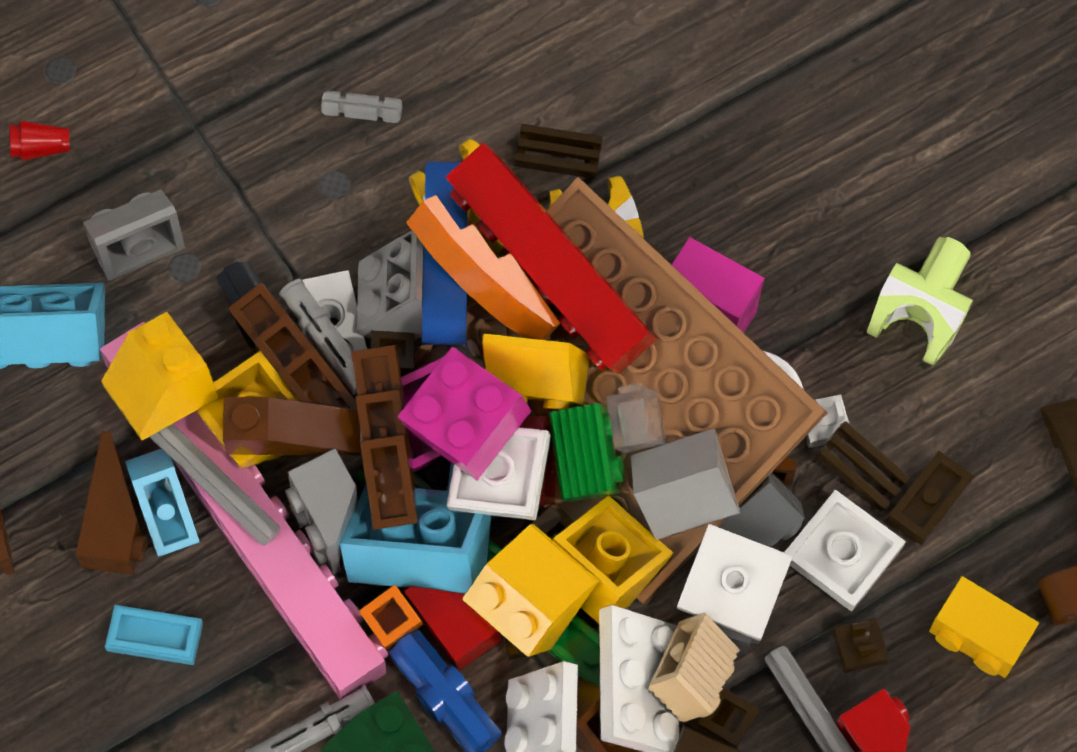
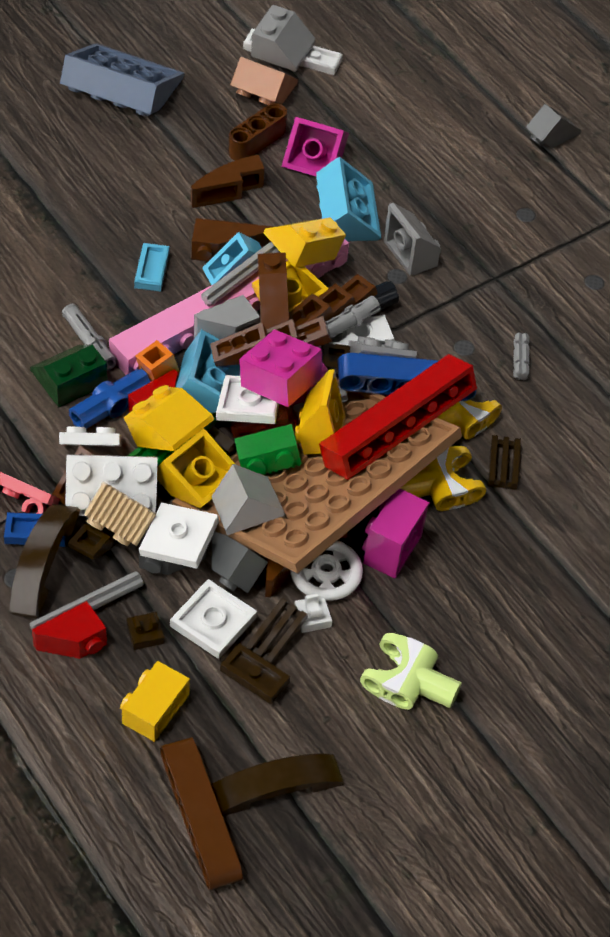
camera: 85 degrees right, 15 degrees down
(37, 140) = (471, 198): red cone -> none
(492, 282) = (381, 382): orange slope -> none
(635, 418) = (289, 469): clear brick -> none

